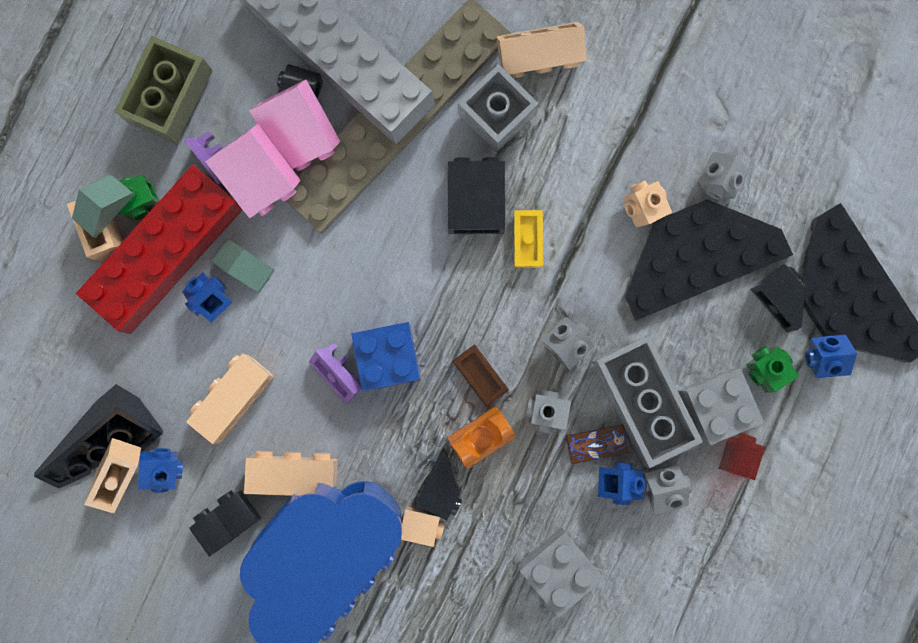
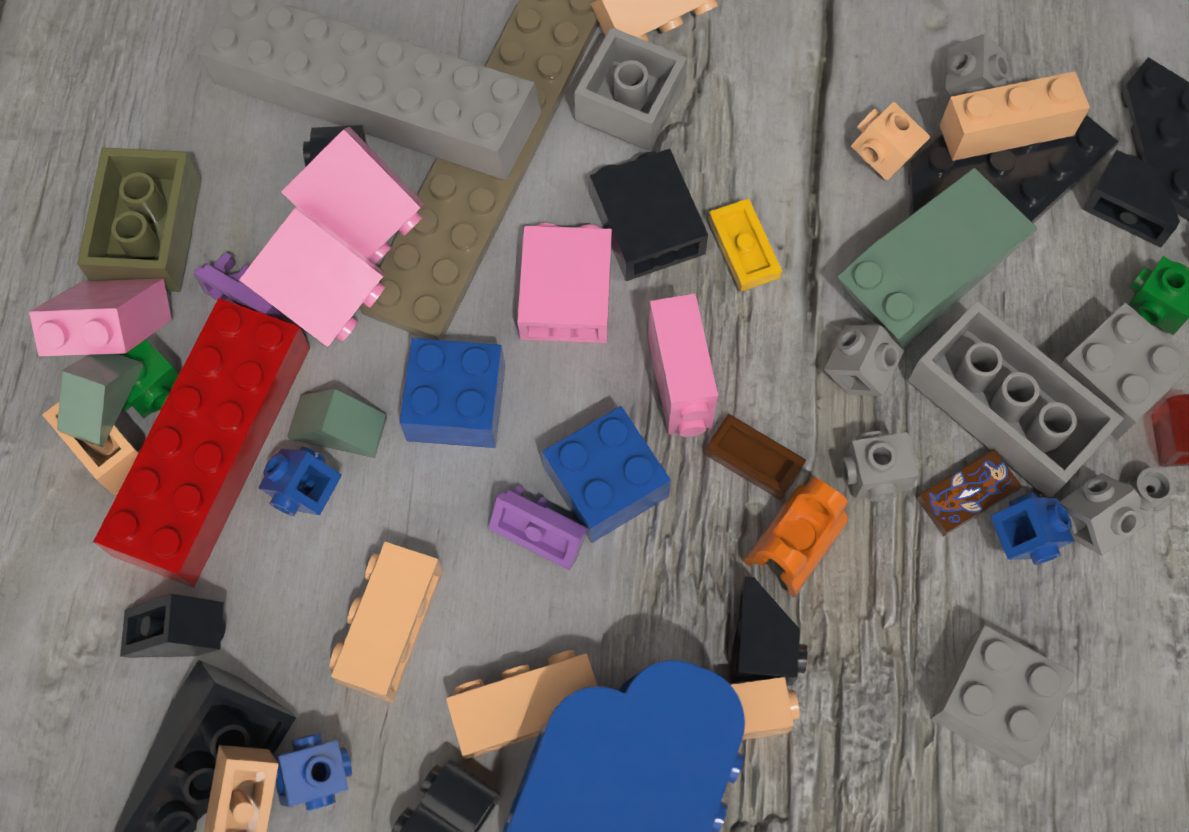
camera: 20 degrees left, 15 degrees down
(109, 358) = (173, 627): none -> black slope
(118, 152) = (100, 317): none -> bright pink brick
(315, 272) = (453, 393): none -> blue brick
(408, 224) = (565, 283): none -> bright pink brick
(454, 308) = (682, 365): none -> bright pink brick
(639, 294) = (935, 257): none -> sand green slope
(711, 485) = (1161, 484): none -> light grey plate
(730, 218) = (1013, 115): none -> light nougat brick

